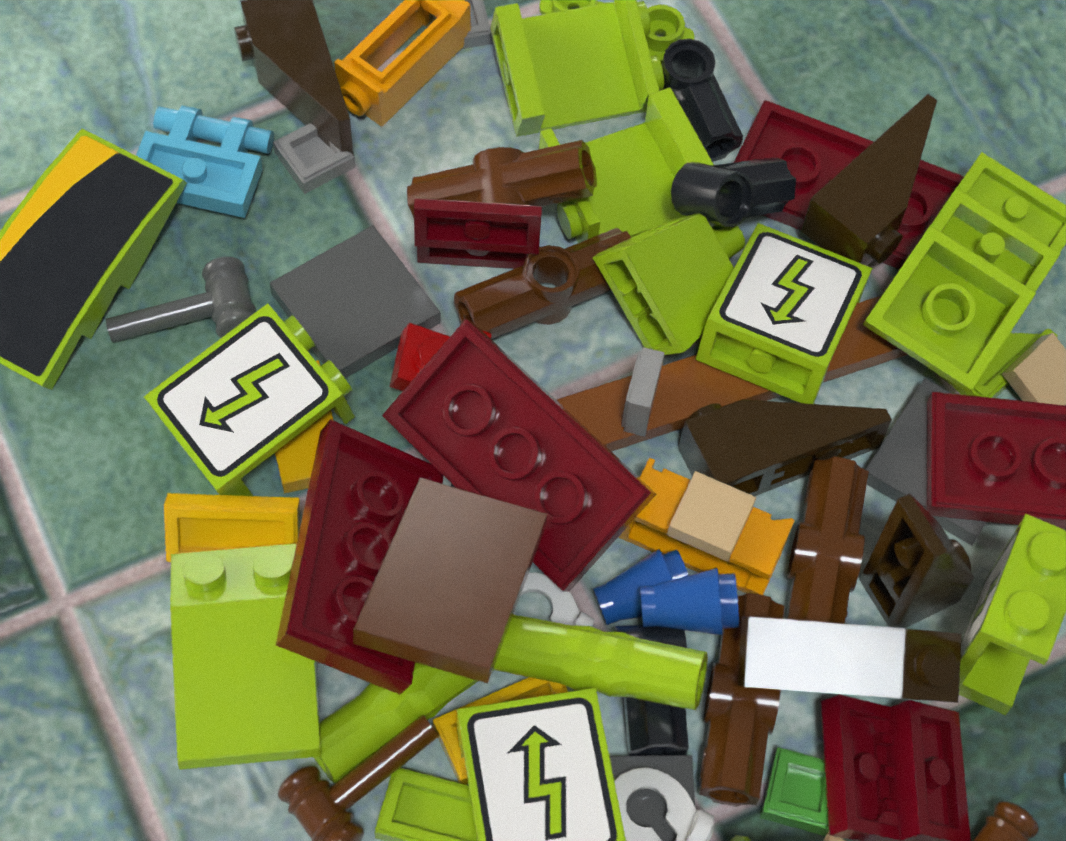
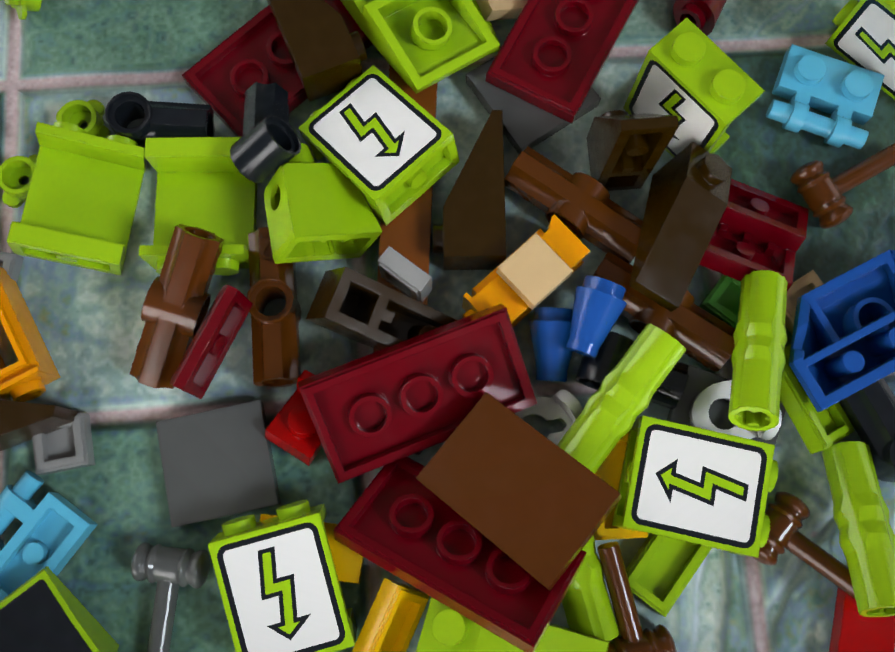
camera: 65 degrees left, 15 degrees up
(585, 369) = (370, 311): none -> dark brown slope
(738, 798) = (759, 351): none -> lime axle

